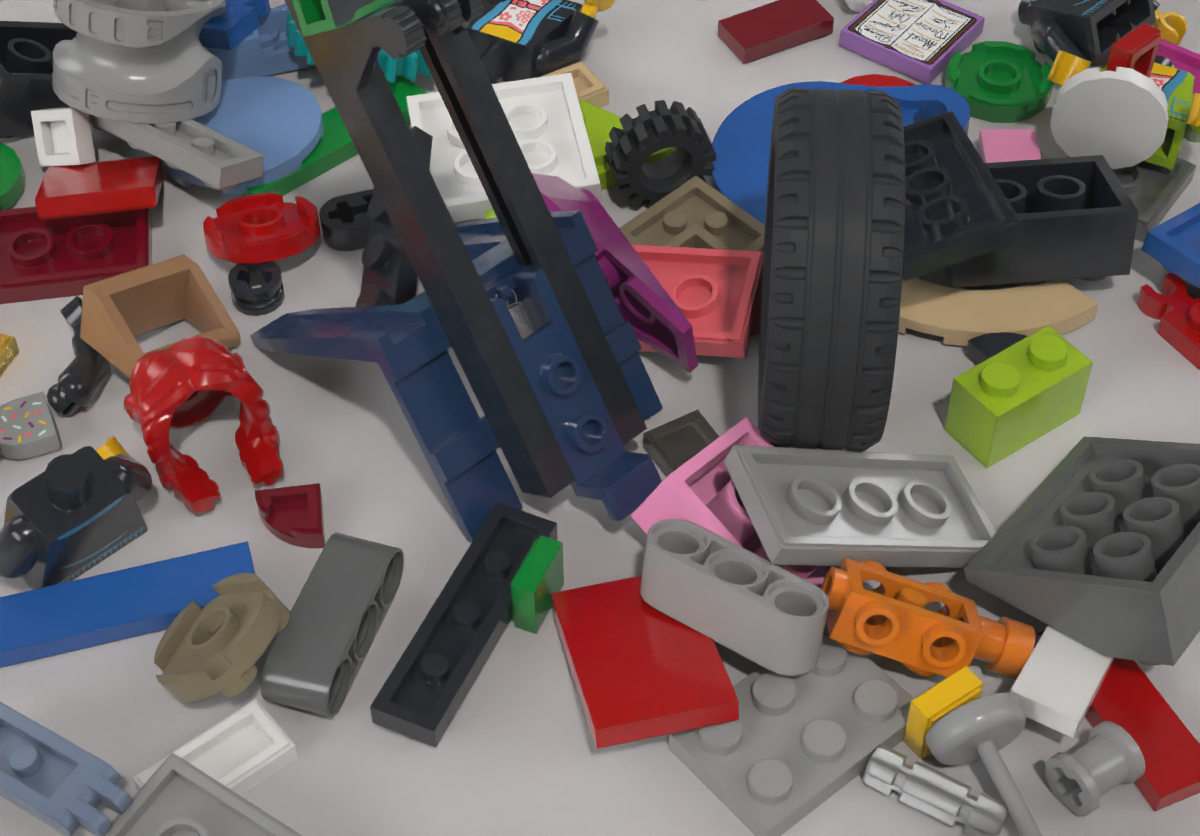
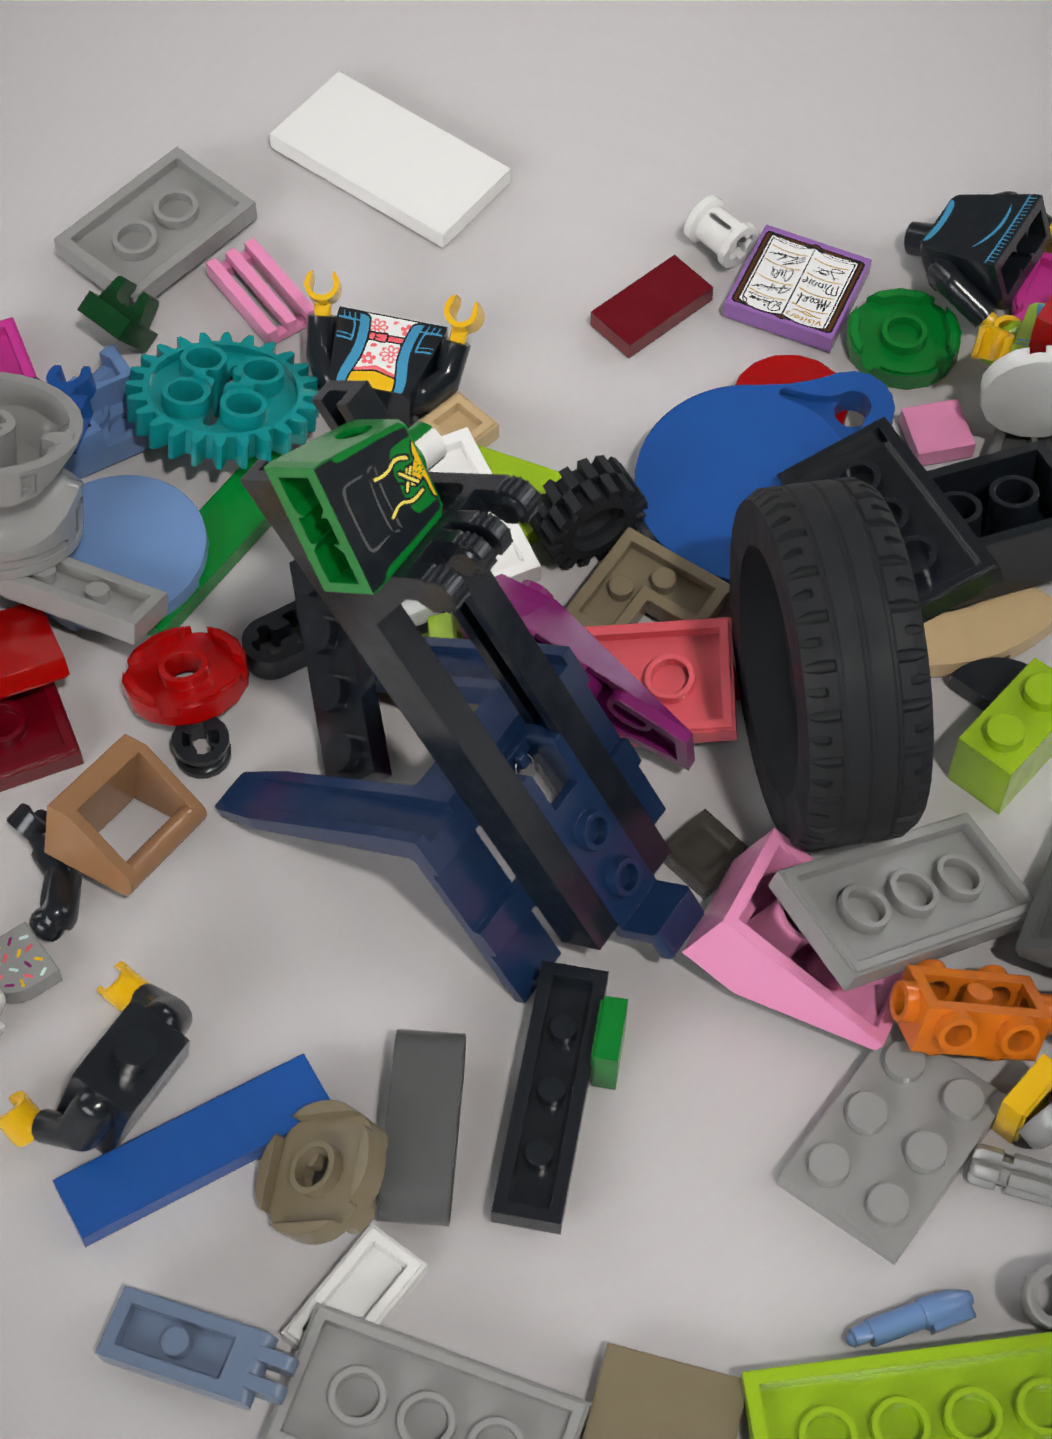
camera: 15 degrees left, 10 degrees up
(187, 387) = (176, 900): red hair -> none
(293, 514) = (334, 1009): dark red tile -> none
(638, 666) = (734, 1101): red tile -> none
(734, 596) = (810, 1026): light grey beam -> none

